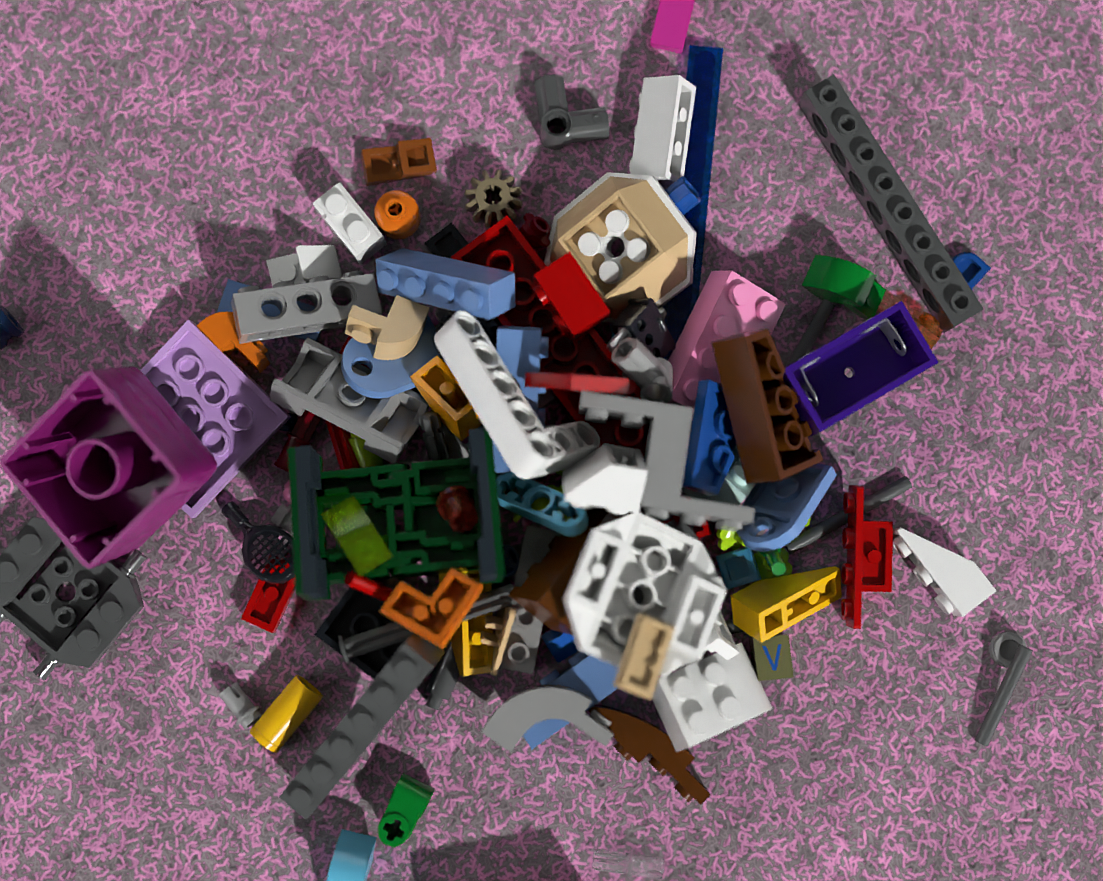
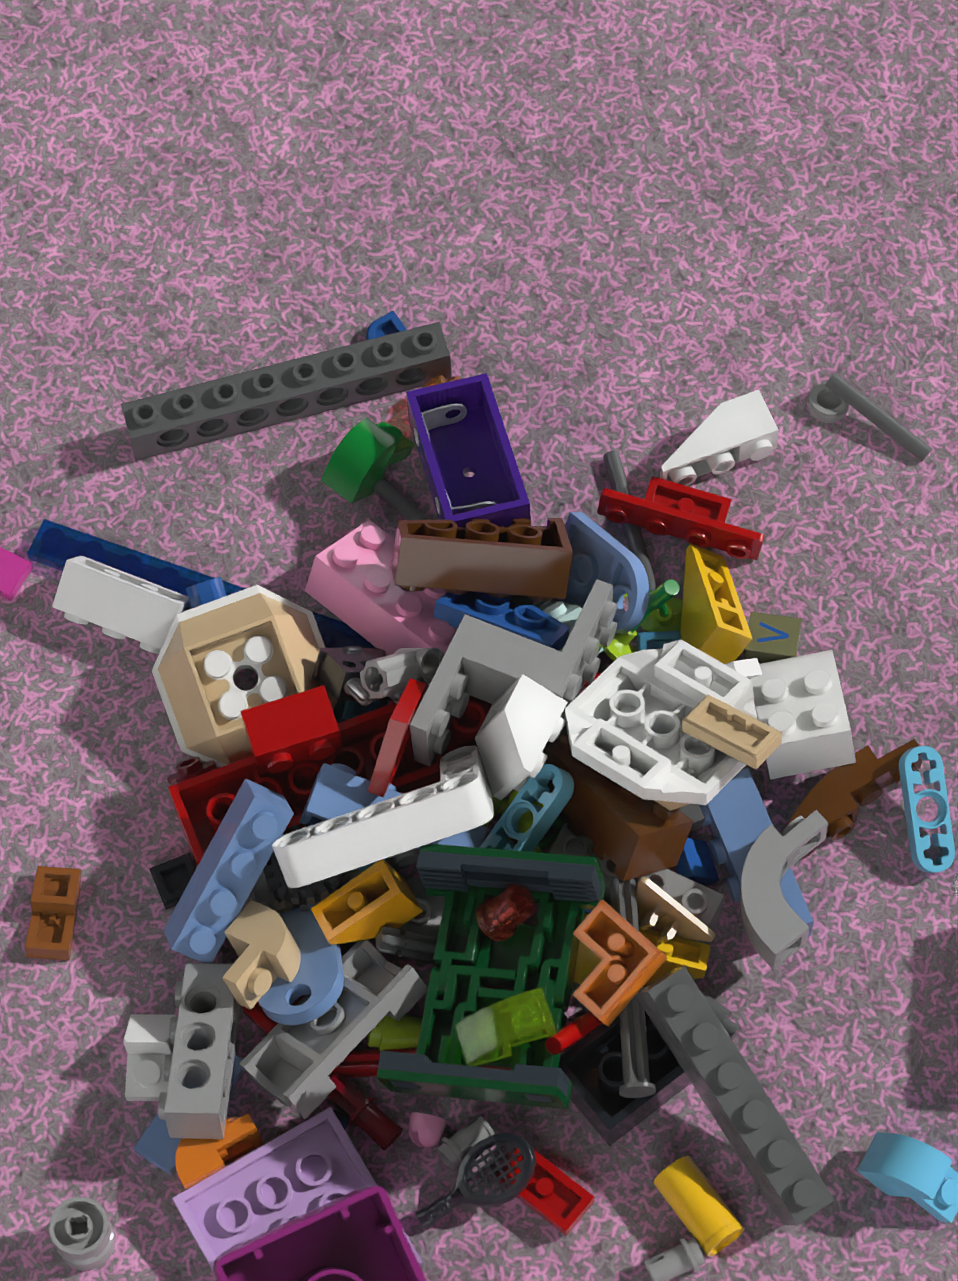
camera: 70 degrees left, 20 degrees down
(148, 262) = (82, 1233): none -> light grey wheel
(350, 223) = (113, 981): white brick -> none
(402, 224) = (121, 922): orange head -> none
(406, 805) = (848, 1089): green piece -> none
(479, 202) = (129, 825): dark tan gear -> none
(553, 110) = (54, 717): dark grey piece -> none
(664, 804) = (942, 819): none -> medium azure beam

